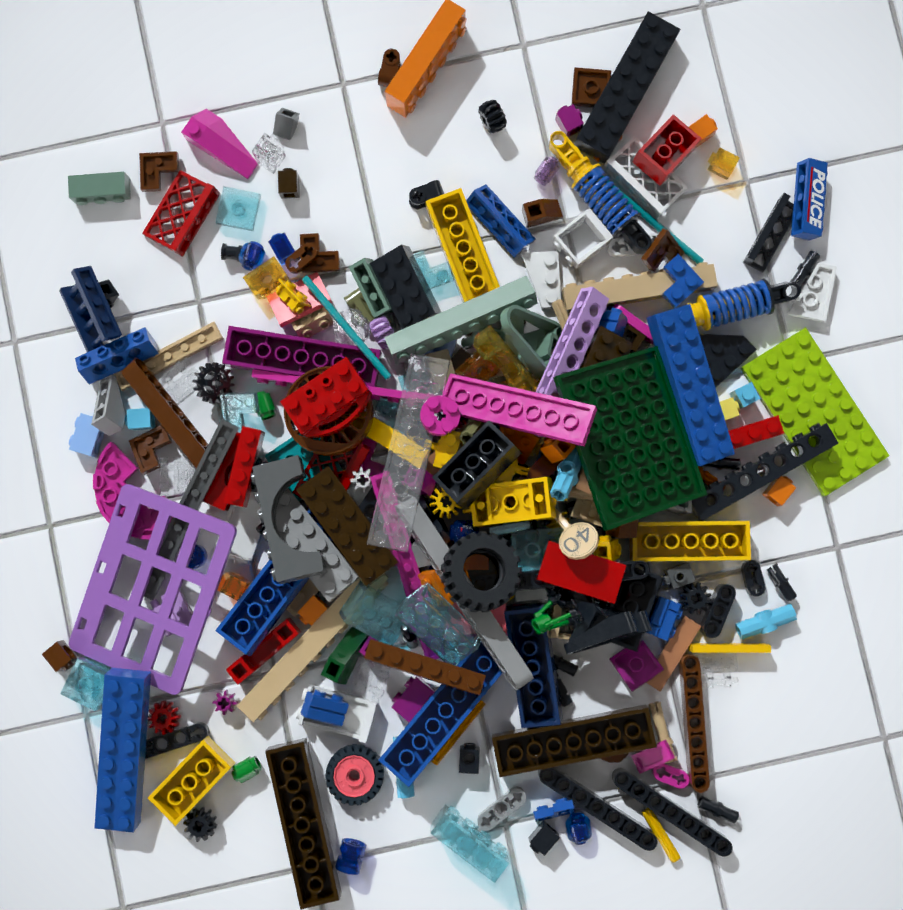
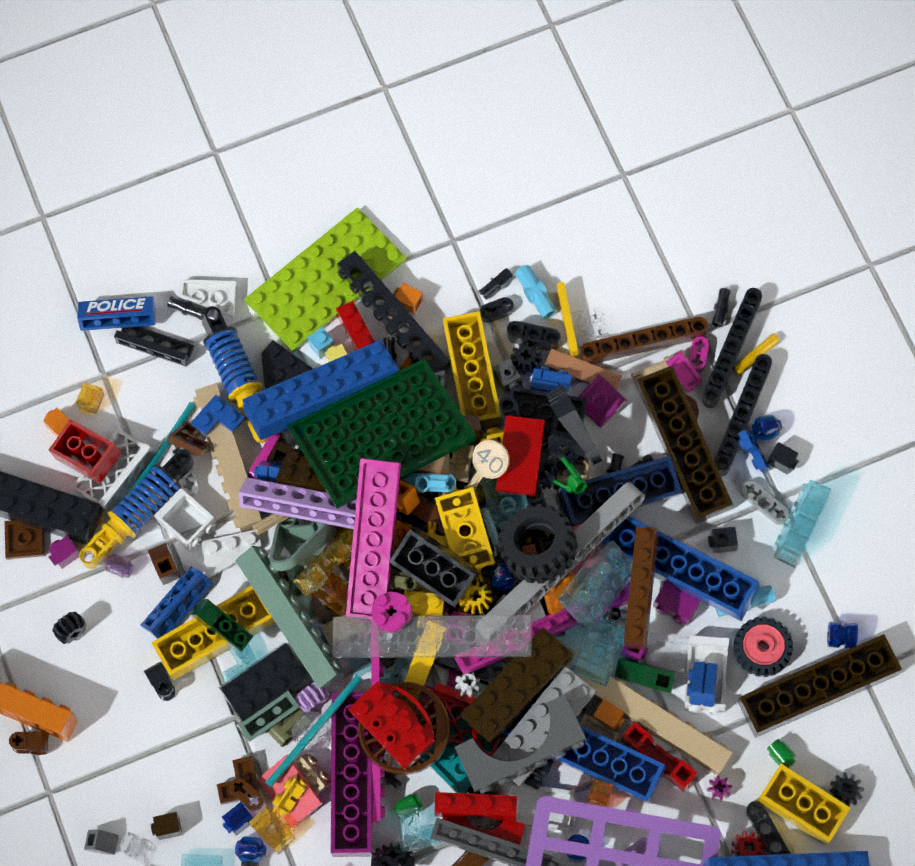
camera: 100 degrees left, 15 degrees down
(464, 254) = (221, 624): none -> dark green slope

